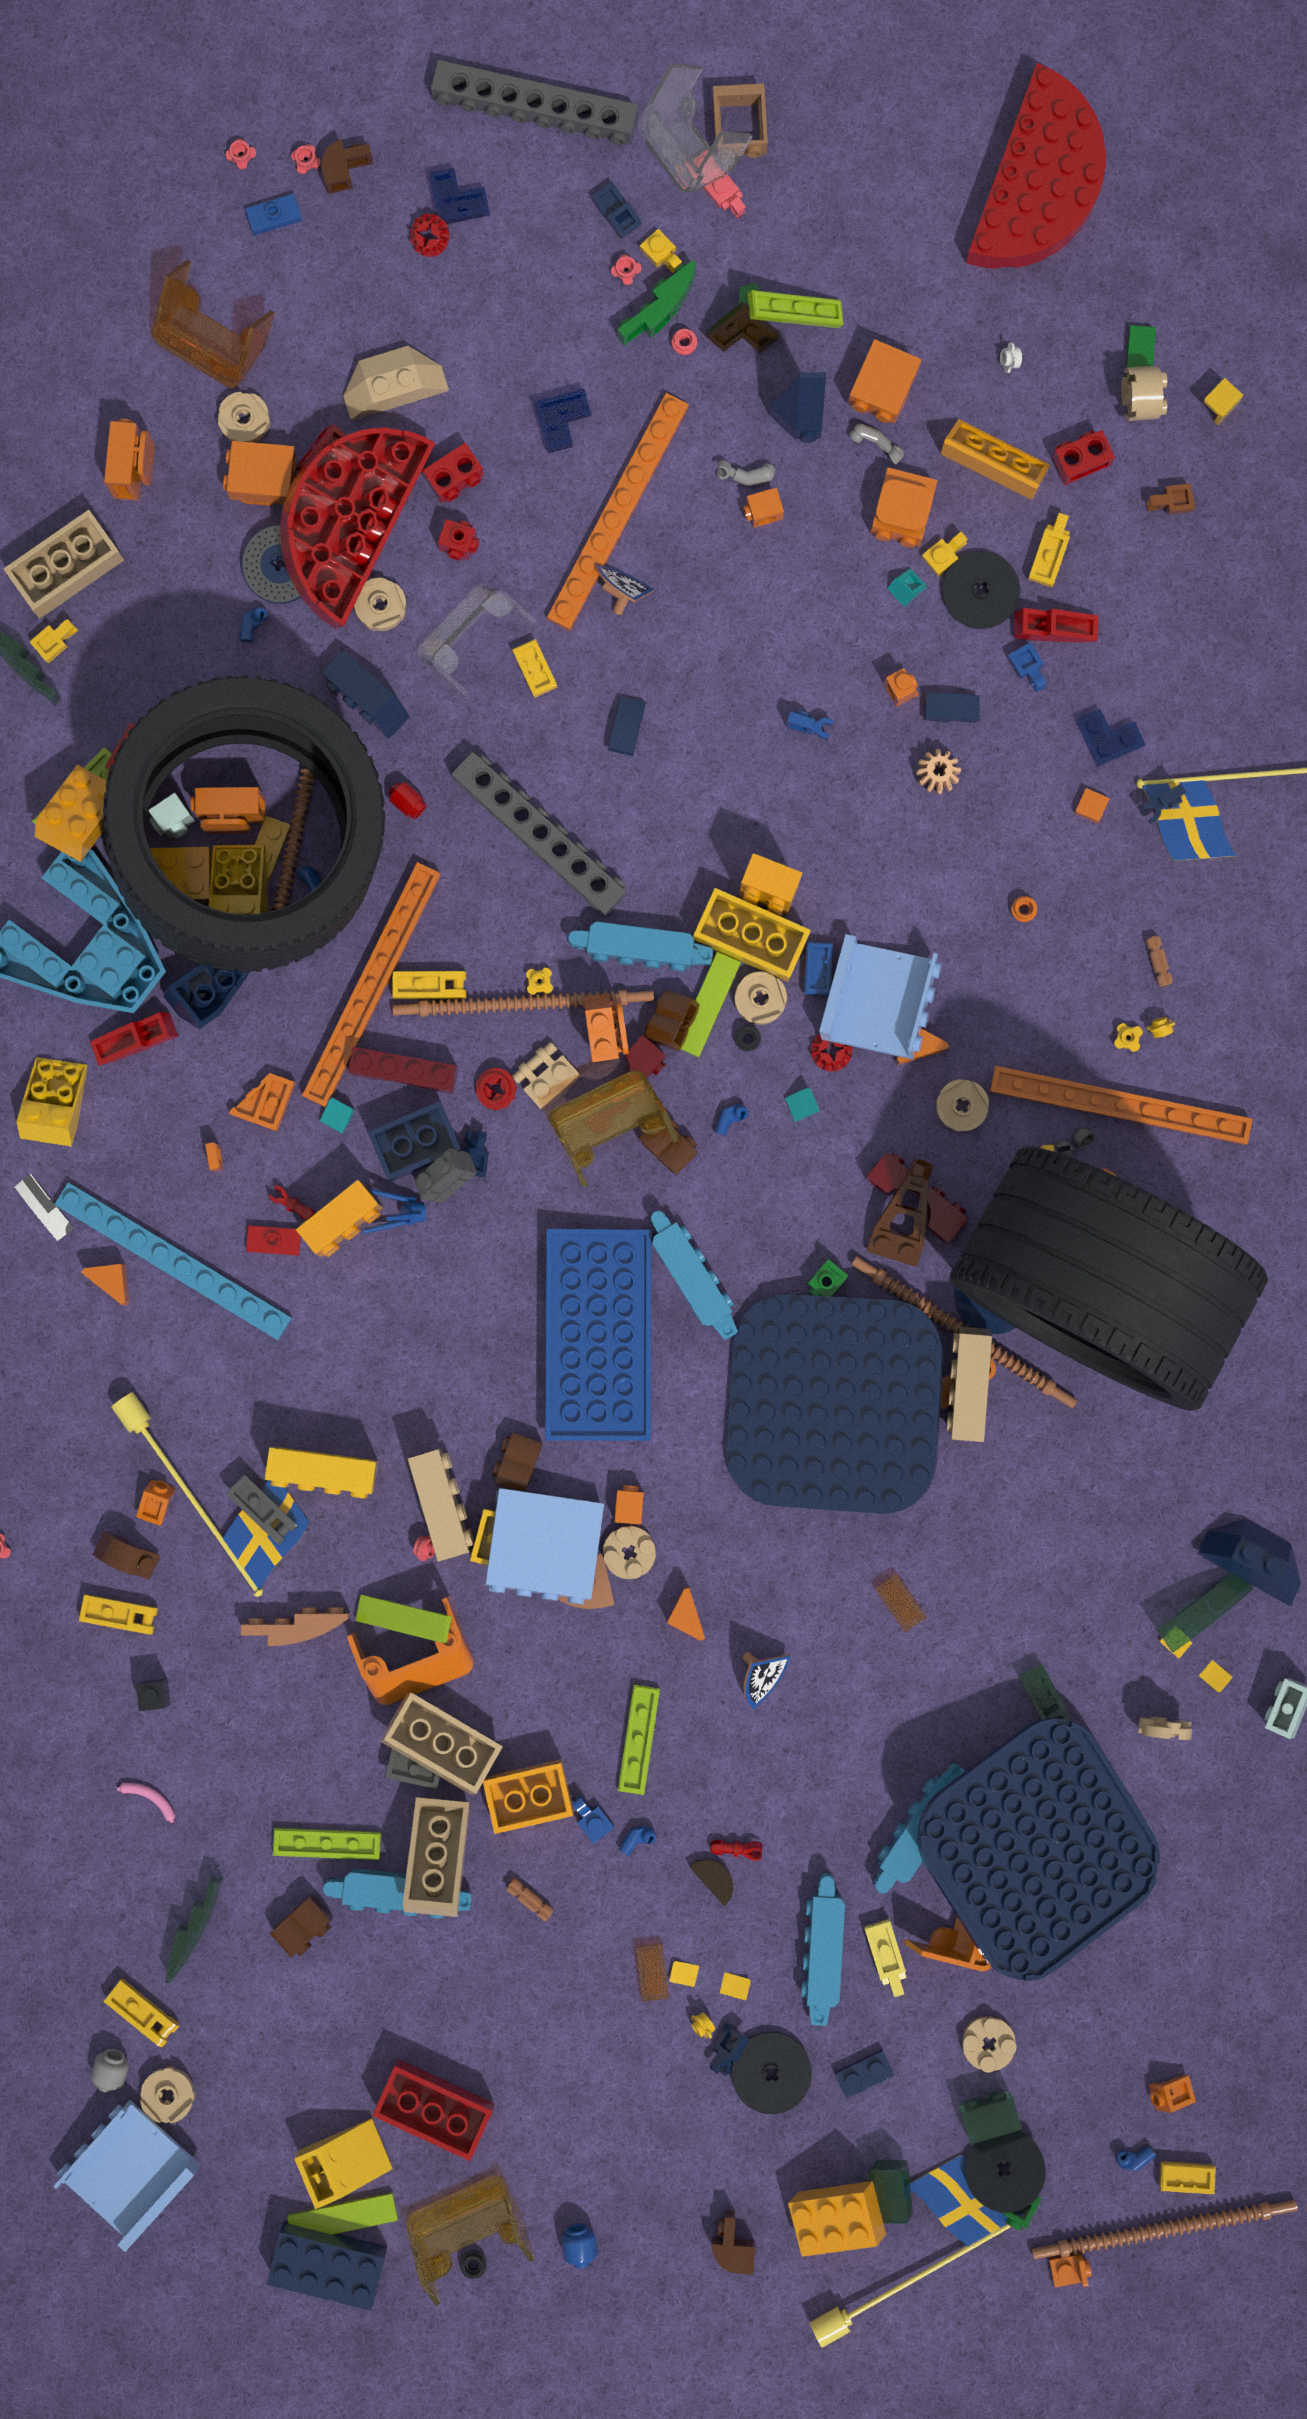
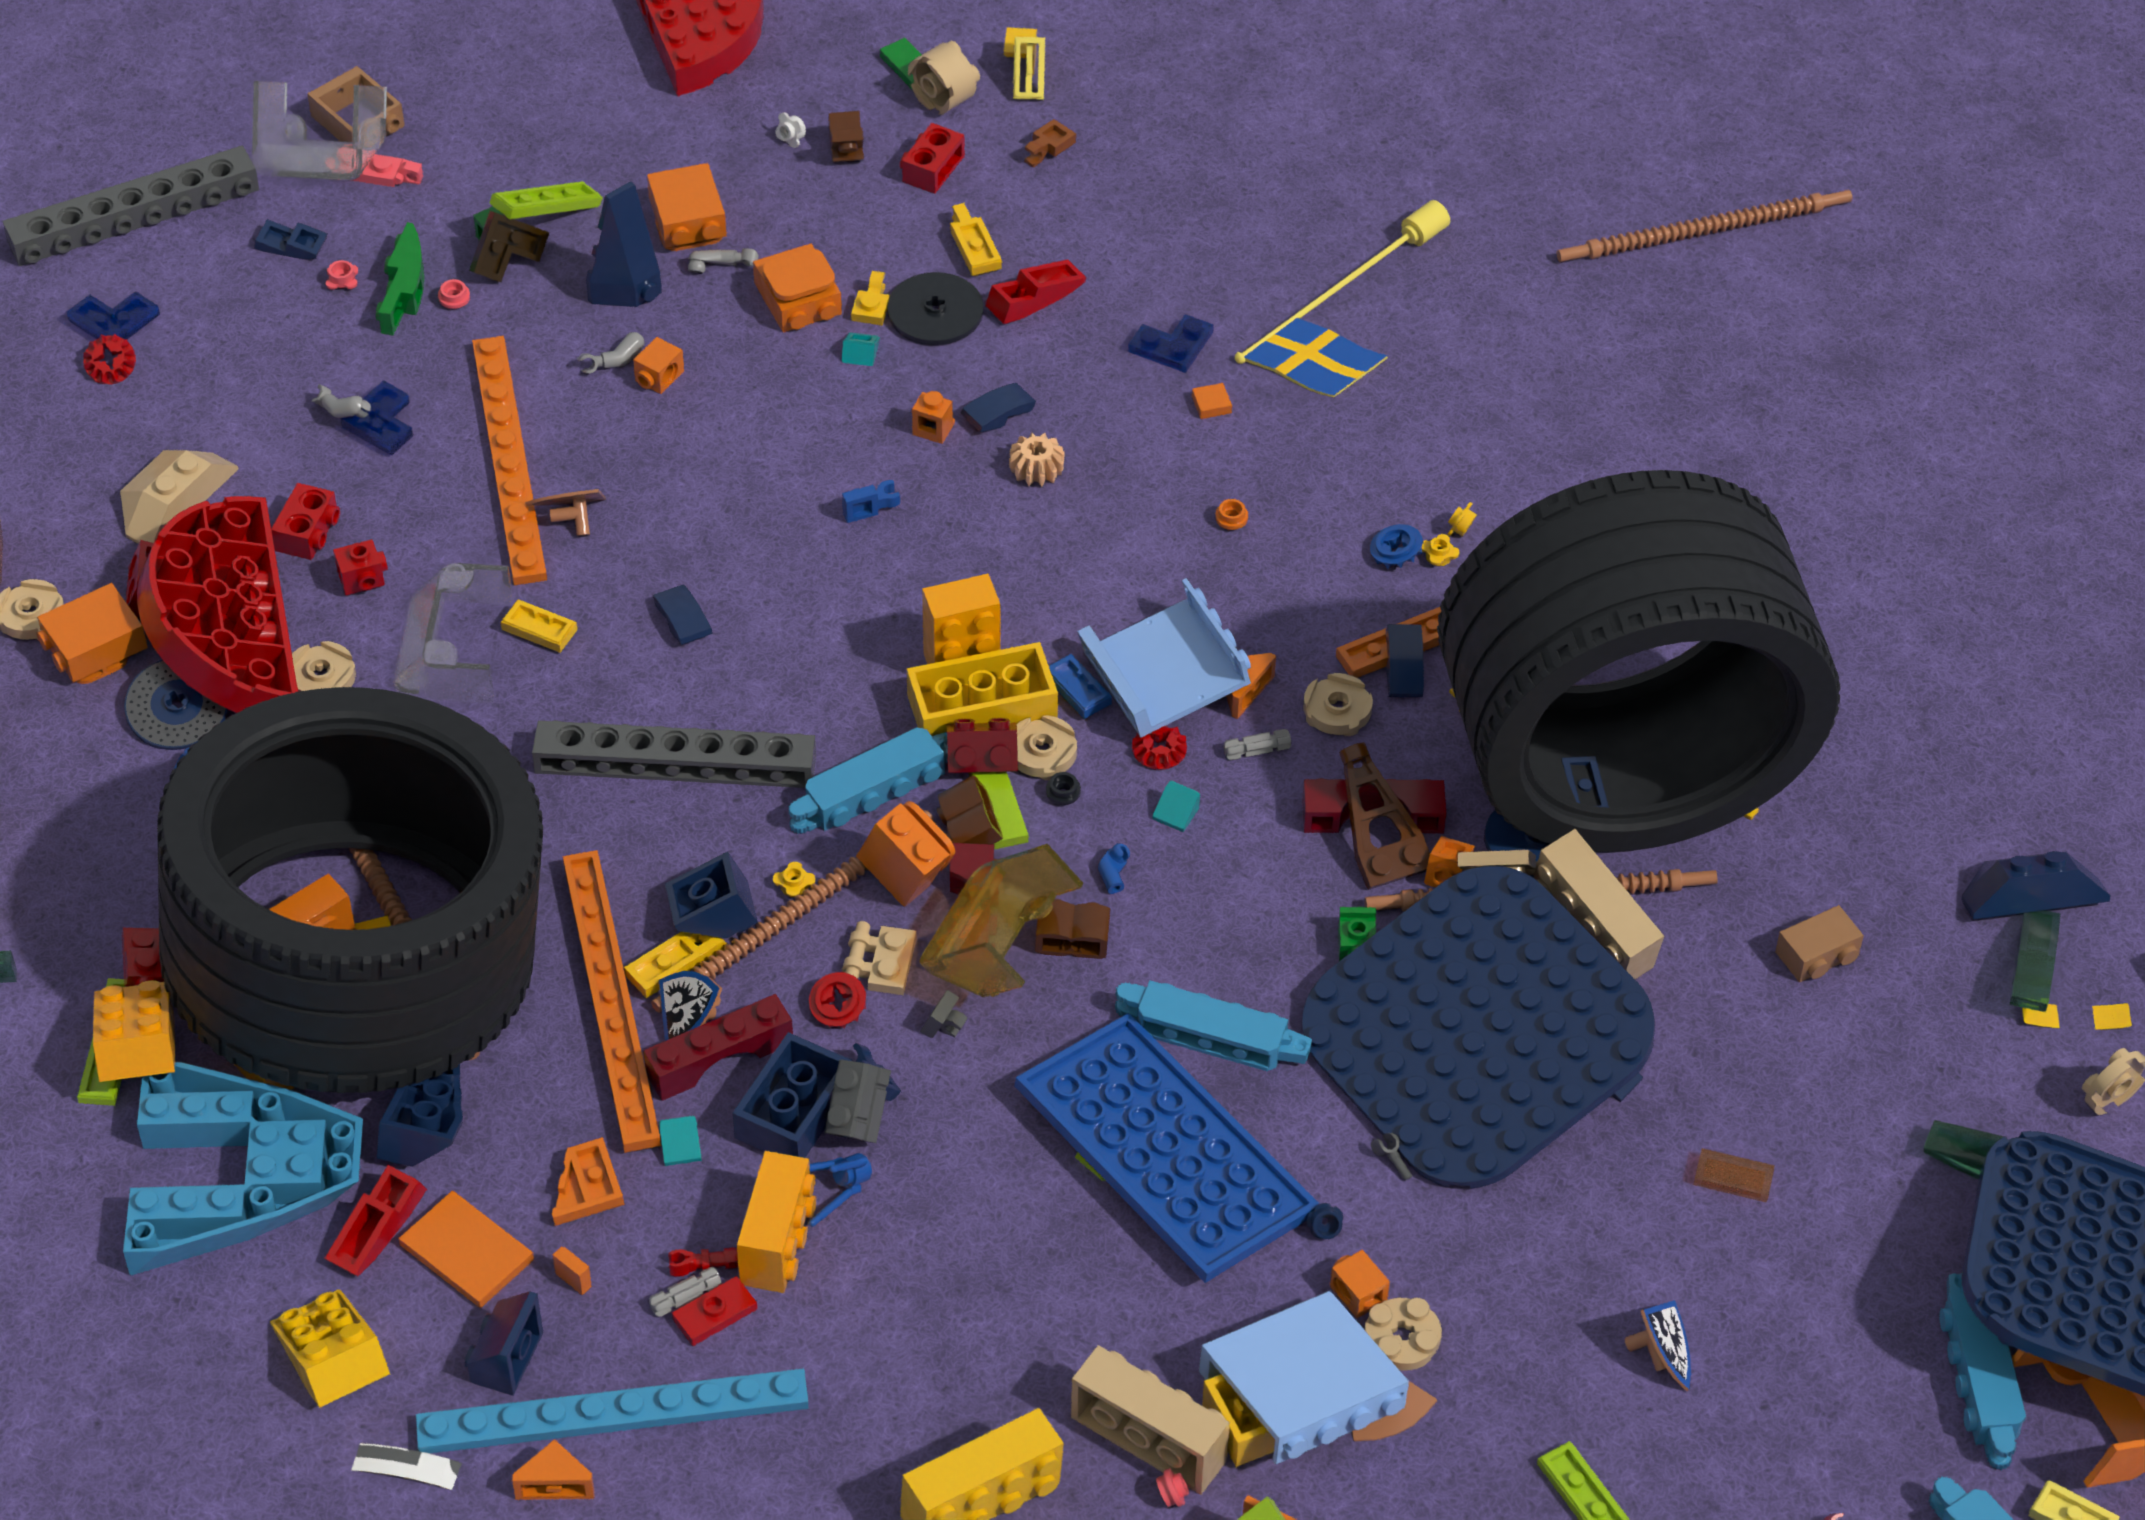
camera: 40 degrees left, 35 degrees down
(141, 1179) = (506, 1343): none -> dark blue slope
(171, 1093) = (466, 1249): none -> orange tile
(266, 1216) = (684, 1291): none -> light grey axle
(403, 1031) = (687, 1001): none -> shield
(474, 965) = (712, 899): none -> dark blue slope
(517, 1463) = (1192, 1322): reddish brown brick -> none
(537, 392) = (341, 407): none -> light grey arm
(546, 1146) = (944, 1017): none -> dark grey tile
(645, 1452) = (1331, 1228): none -> dark blue plate
(660, 250) = (365, 244): yellow plate -> none
(685, 1616) = (1527, 1344): orange slope -> none
(718, 975) = (982, 746): none -> dark red bracket
(722, 1435) = (1392, 1153): none -> dark grey hand
(890, 1095) = (1257, 744): none -> light grey axle
(926, 1271) = (1444, 860): none -> orange bracket
(943, 1306) = (1516, 859): none -> tan plate
(994, 459) = (851, 211): light orange slope -> none
(1026, 663) = (1039, 330): blue plate -> none
(1026, 1109) = (1405, 660): none -> dark blue slope
(1040, 394) = (845, 136): none -> reddish brown brick
(1088, 1500) = (1819, 944): none -> medium nougat brick
(1107, 1004) = (1392, 537): none -> blue gear
(1159, 961) = (1403, 475): nougat axle -> none
(1170, 799) = (1280, 343): dark blue plate -> none
(1223, 409) = (1029, 58): none -> light yellow tile

